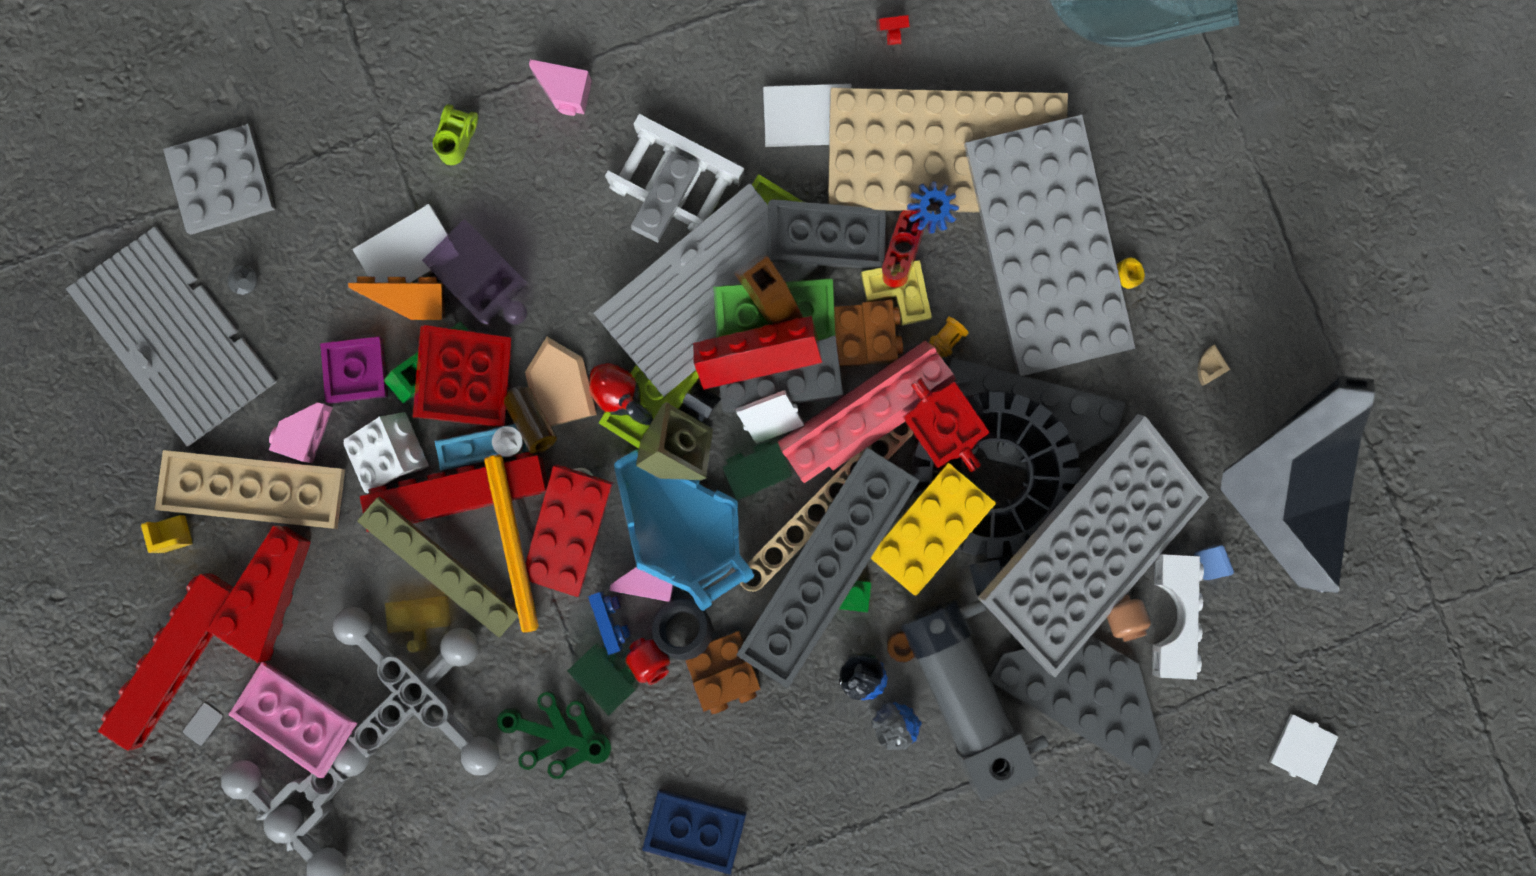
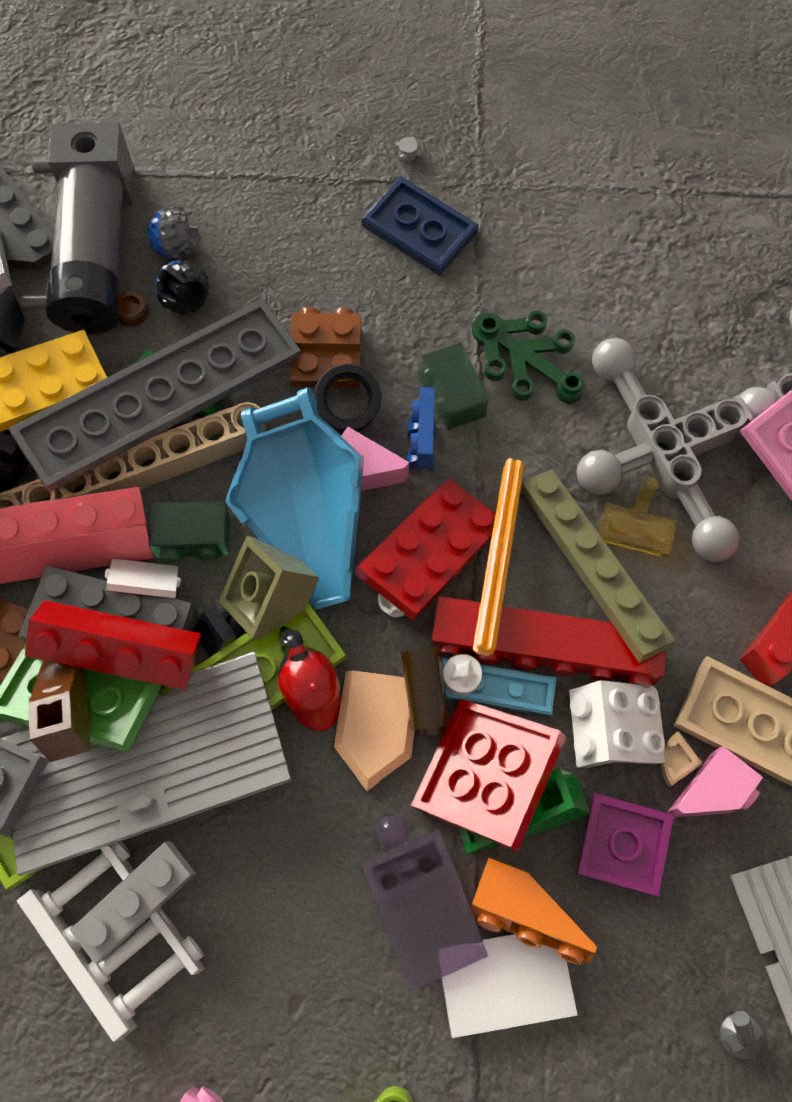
camera: 160 degrees left, 15 degrees down
(334, 446) = (679, 759): none -> tan tile
(647, 661) = (398, 384): red head -> none

